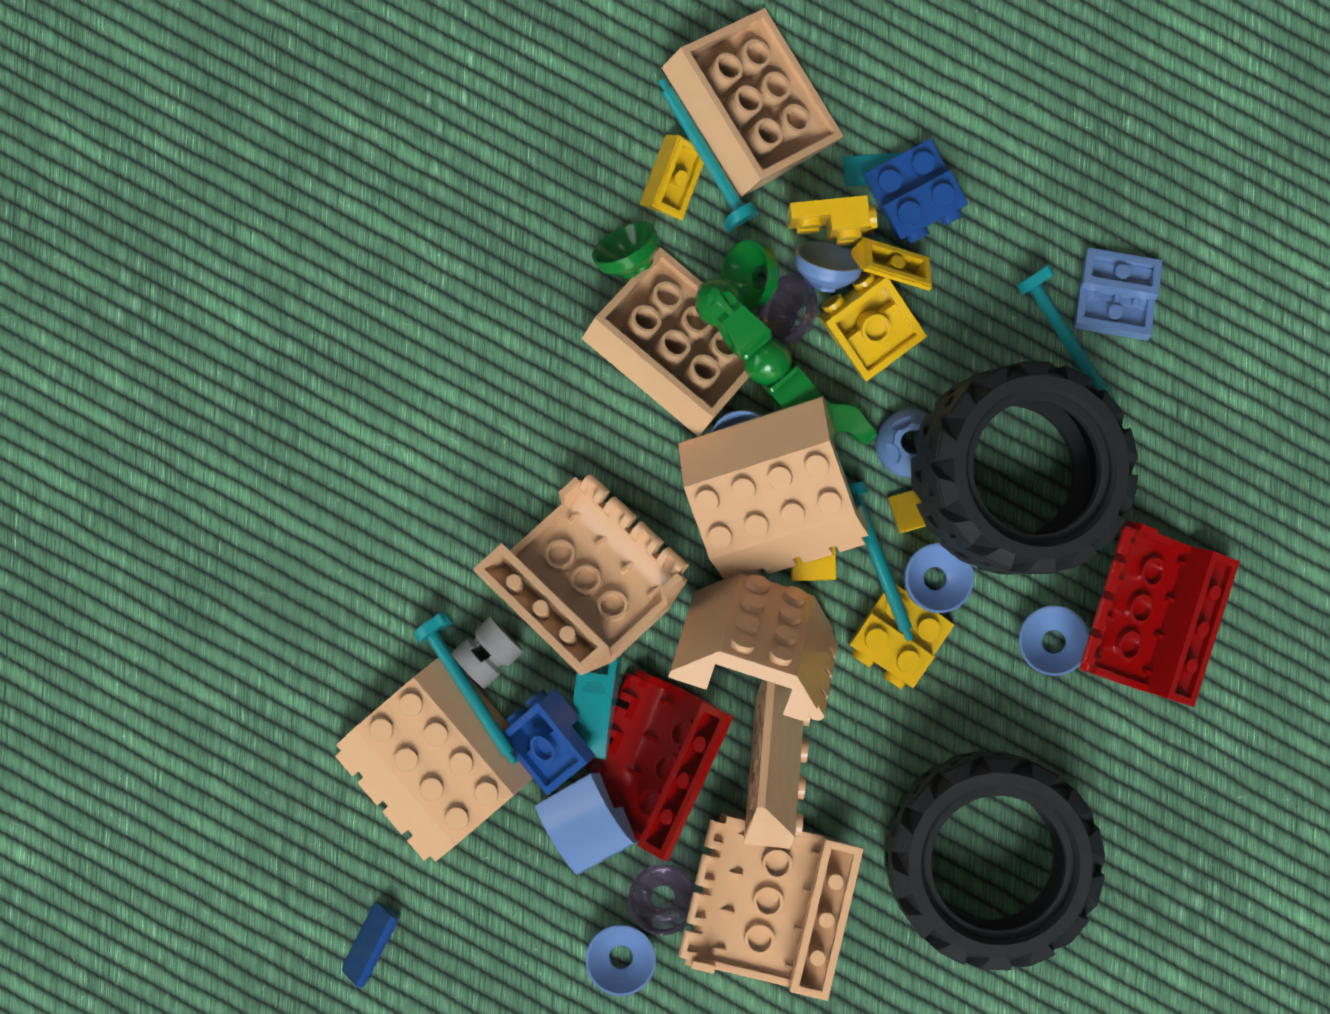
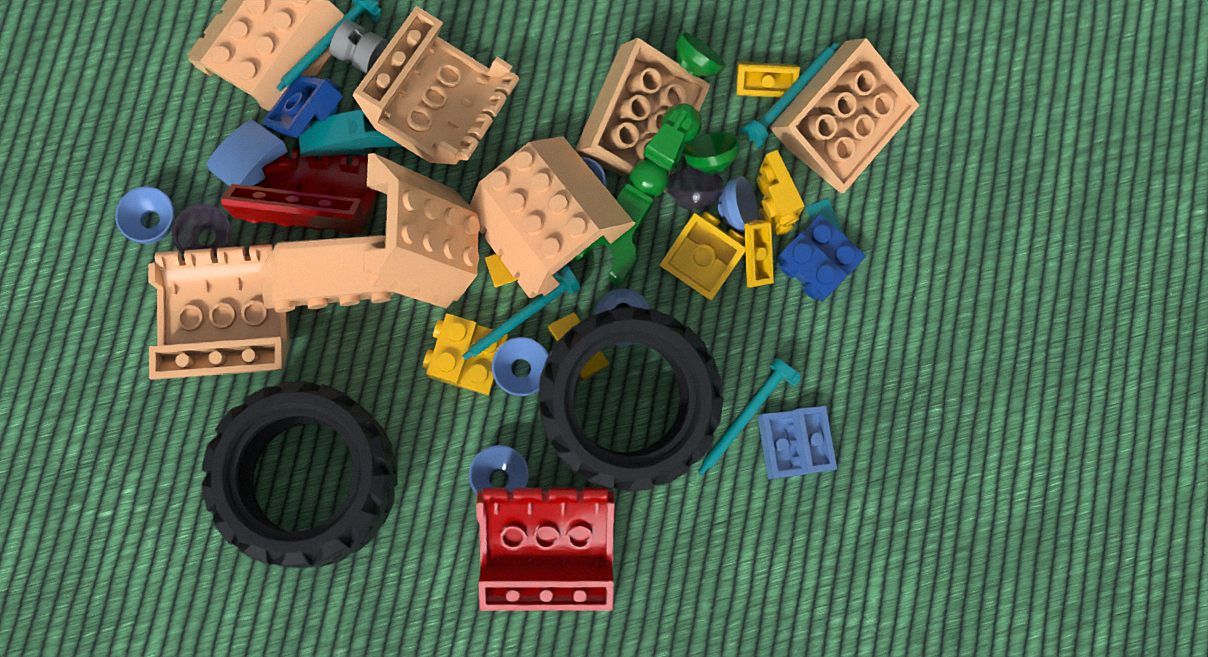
camera: 70 degrees right, 10 degrees down
(370, 944) = (111, 35): blue slope -> none

